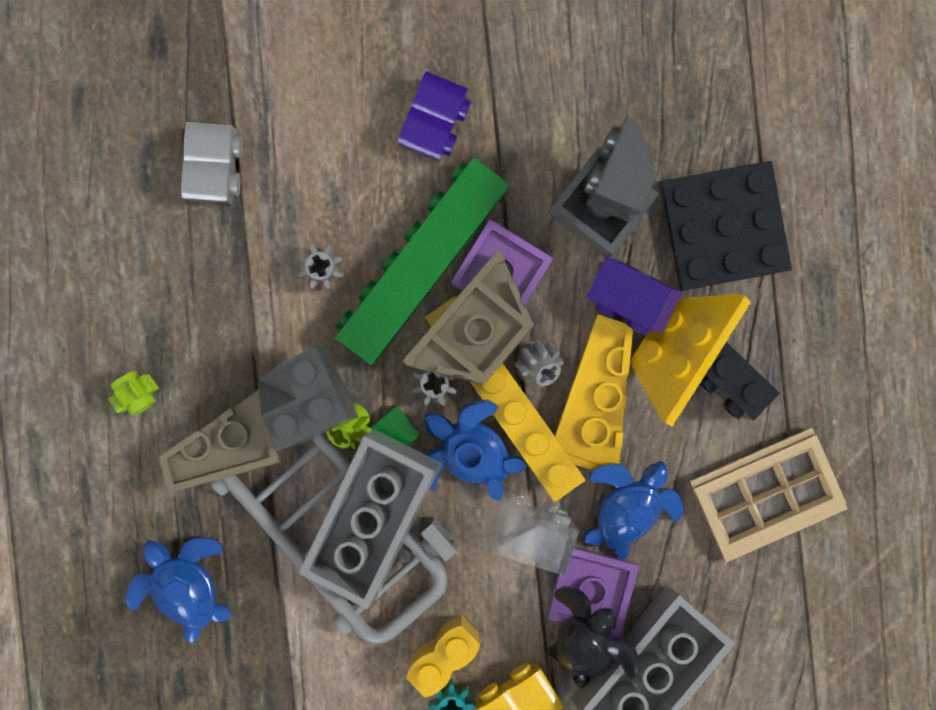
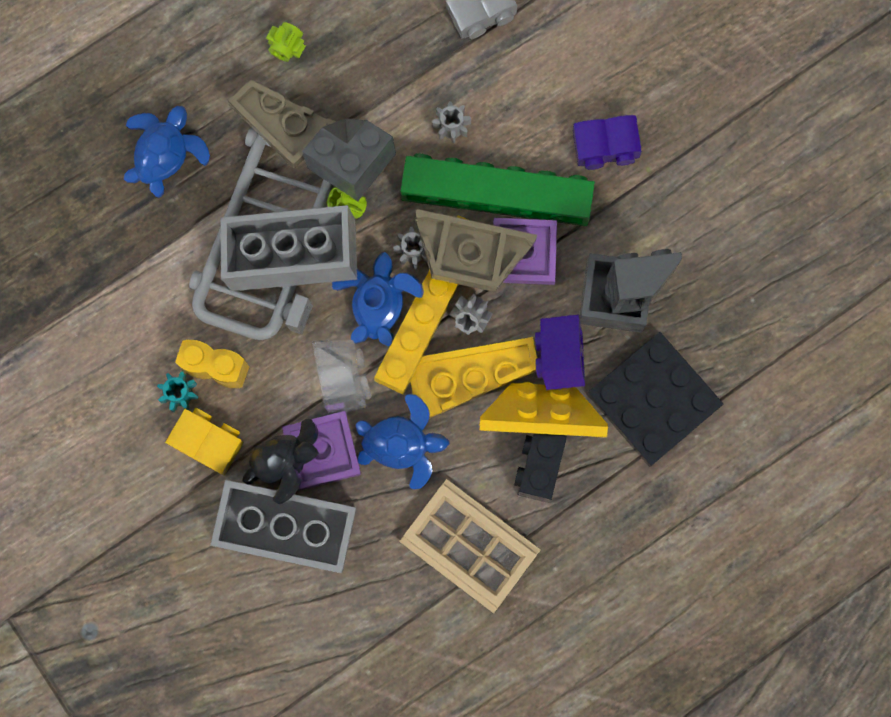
camera: 65 degrees right, 10 degrees down
(397, 426) = (366, 240): green tile -> none

